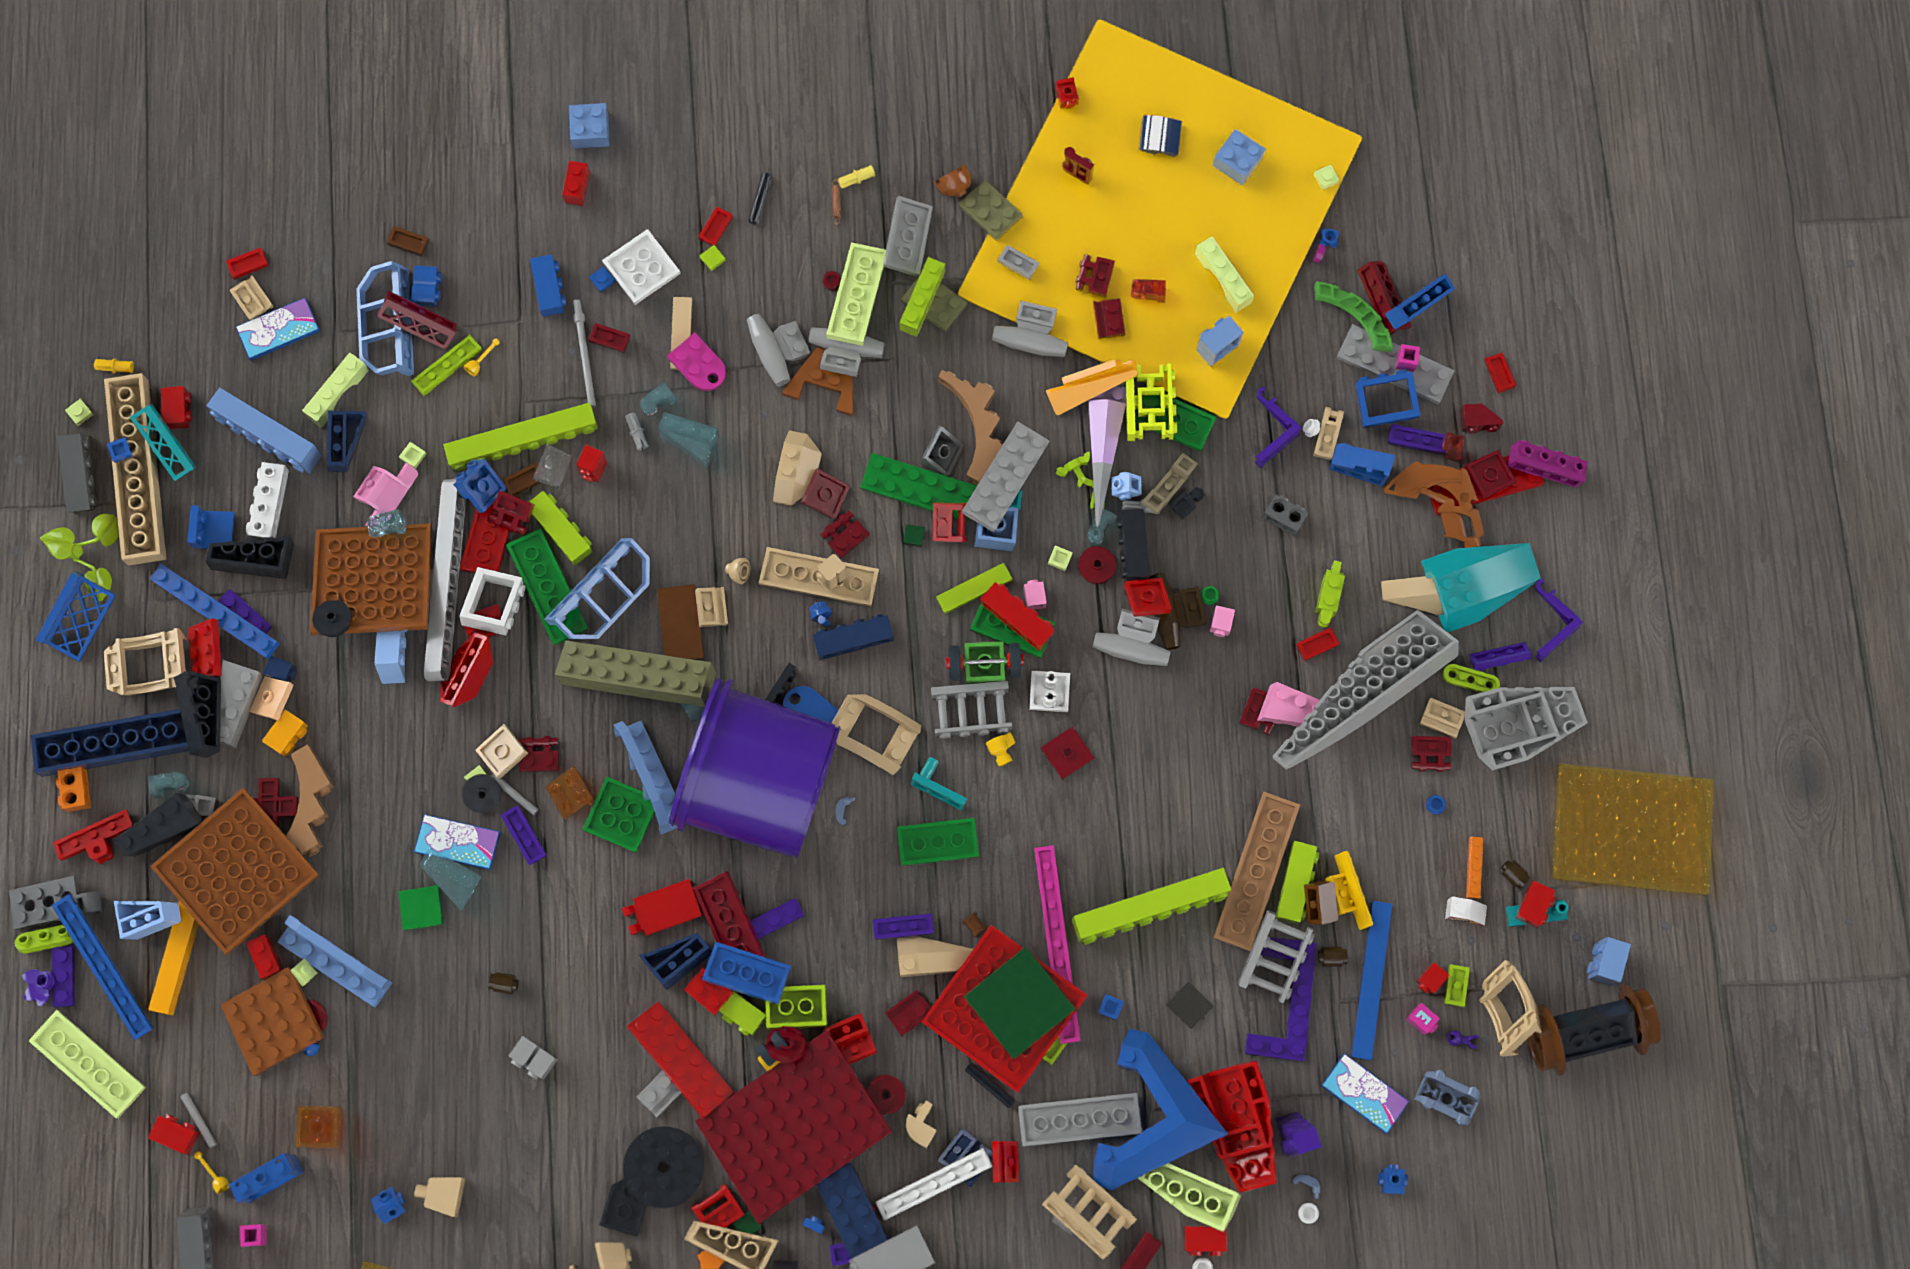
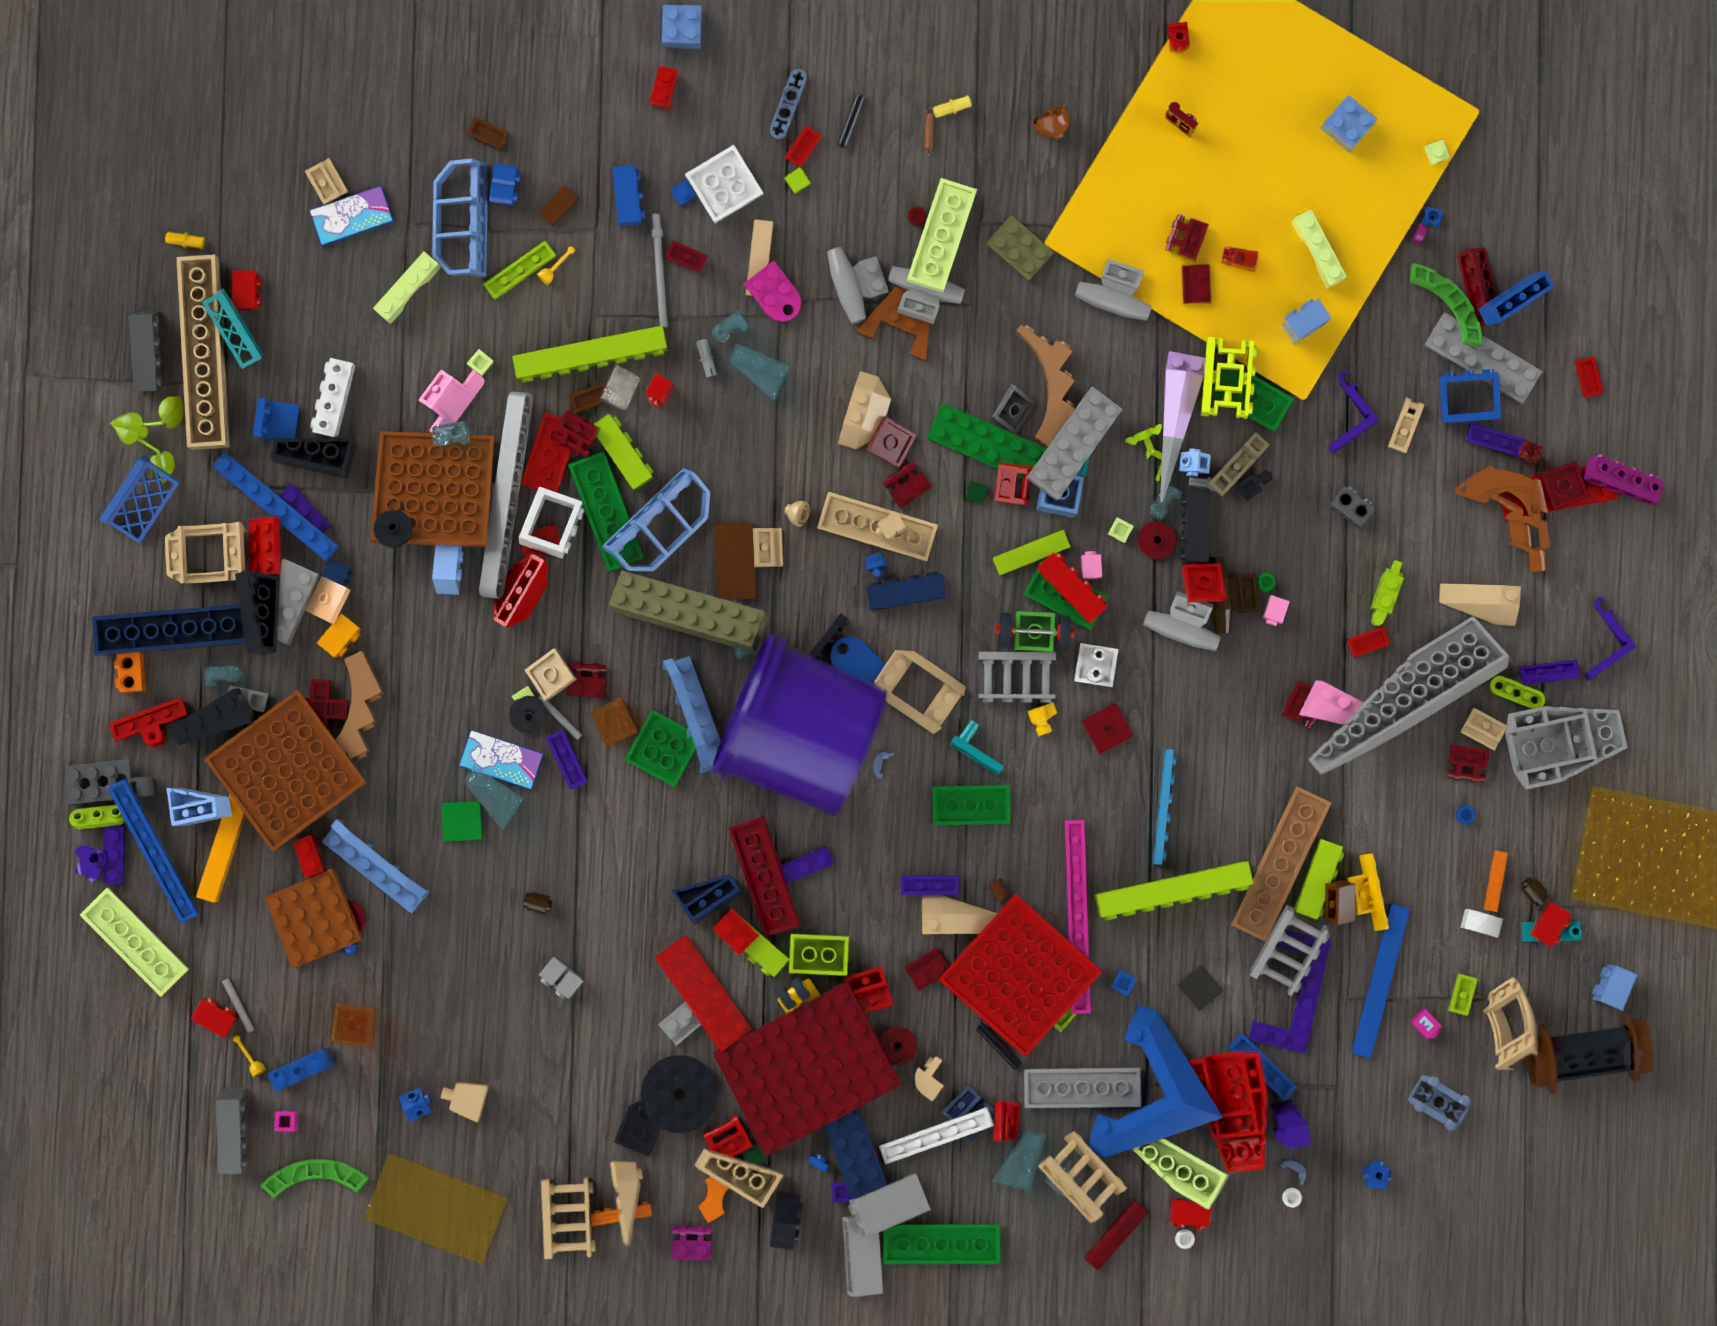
camera: 10 degrees right, 10 degrees up
(79, 412) = (148, 285): yellowish green plate -> none
(119, 450) = (190, 334): blue plate -> none
(247, 263) = (323, 142): red tile -> none
(264, 431) = (329, 322): medium blue brick -> none
(303, 972) = (346, 874): yellowish green plate -> none
(343, 437) = (411, 339): dark blue wedge -> none
(419, 314) = (497, 220): dark red fence -> none
(479, 484) = (546, 401): blue plate -> none
(481, 301) = (558, 205): none -> reddish brown tile
(663, 908) = (698, 844): red tile -> none
(699, 189) = (787, 104): none -> sand blue beam
(746, 973) = (774, 918): blue tile -> none
(793, 1038) = (816, 992): dark red plate -> none
(907, 236) = (999, 177): light grey plate -> none
(922, 296) = (1008, 245): lime brick -> none
(990, 210) = (1086, 156): olive plate -> none
(1018, 262) = (1109, 216): light grey plate -> none
(1019, 1002) = (1035, 972): dark green tile -> none
(1025, 1203) = (1021, 1163): none -> clear light blue wedge
(1090, 383) = (1169, 353): light orange wedge -> none
(1133, 833) = (1163, 813): none -> dark azure plate
(1160, 135) = (1270, 91): dark blue slope -> none
(1276, 1089) = (1273, 1075): none -> blue plate
(1311, 427) = (1389, 418): white plate -> none
(1332, 956) = (1345, 955): dark brown brick -> none
(1362, 463) = (1435, 461): blue wedge -> none
(1365, 1093) = (1360, 1089): tile -> none
(1407, 358) = (1495, 357): dark pink brick -> none
(1432, 979) = (1439, 986): red brick -> none
(1458, 1039) = (1458, 1046): dark purple arm -> none
(1479, 418) = (1560, 423): dark red slope -> none
(1479, 580) = (1538, 593): teal wedge -> none

